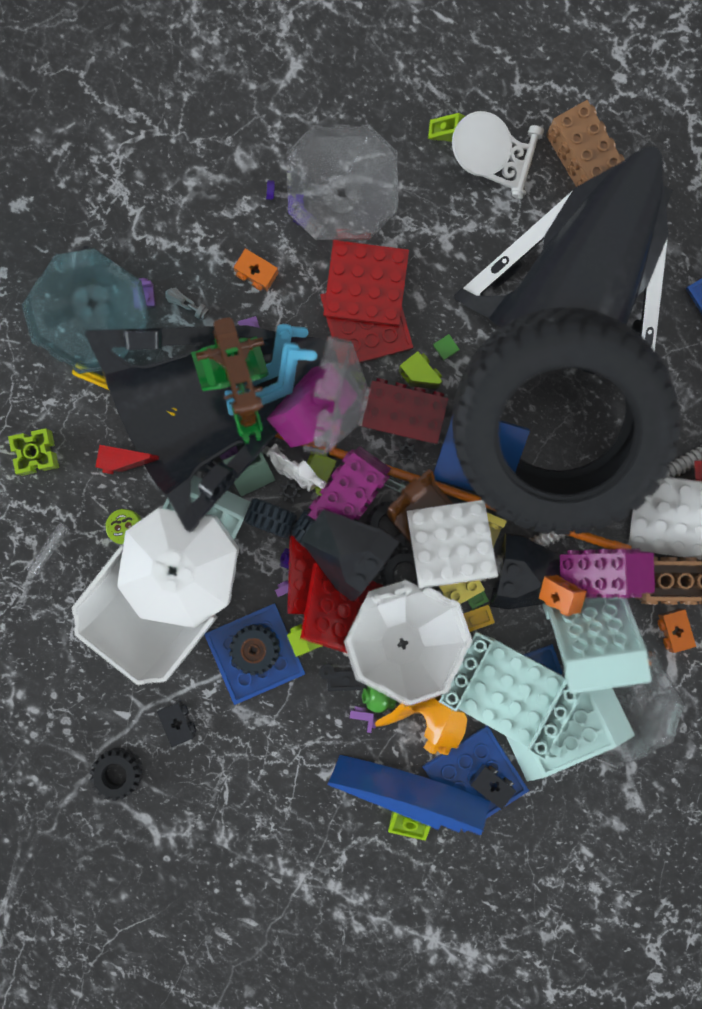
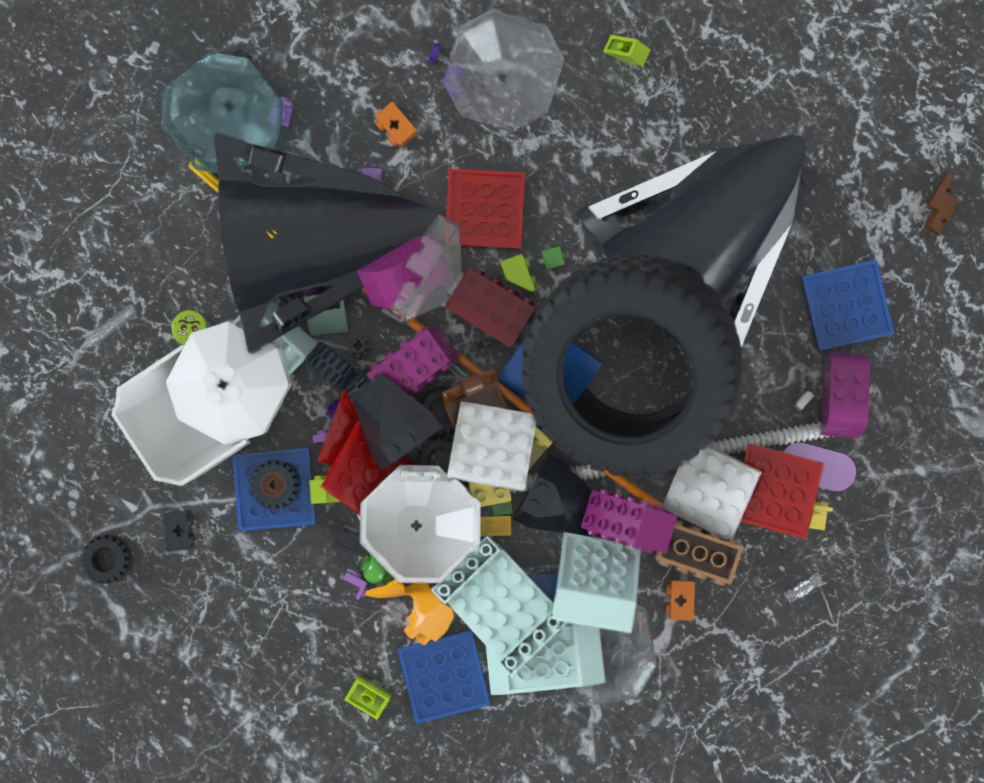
camera: 15 degrees right, 0 degrees up
(23, 446) = (120, 219): lime brick -> none
(120, 460) = (207, 263): red slope -> none
(176, 297) = (310, 124): light grey piece -> none
(232, 364) = (344, 210): piece -> none
(283, 365) = (390, 226): medium azure piece -> none
(300, 472) = (372, 332): white plate -> none
(322, 467) = (393, 336): lime slope -> none
(366, 283) = (496, 172): red plate -> none
(410, 795) = (376, 669): blue slope -> none
(485, 146) = (653, 77): white piece -> none
(501, 794) = (458, 699): black brick -> none
(562, 595) = (579, 528): orange brick -> none
(583, 143) = (746, 108): medium nougat brick -> none

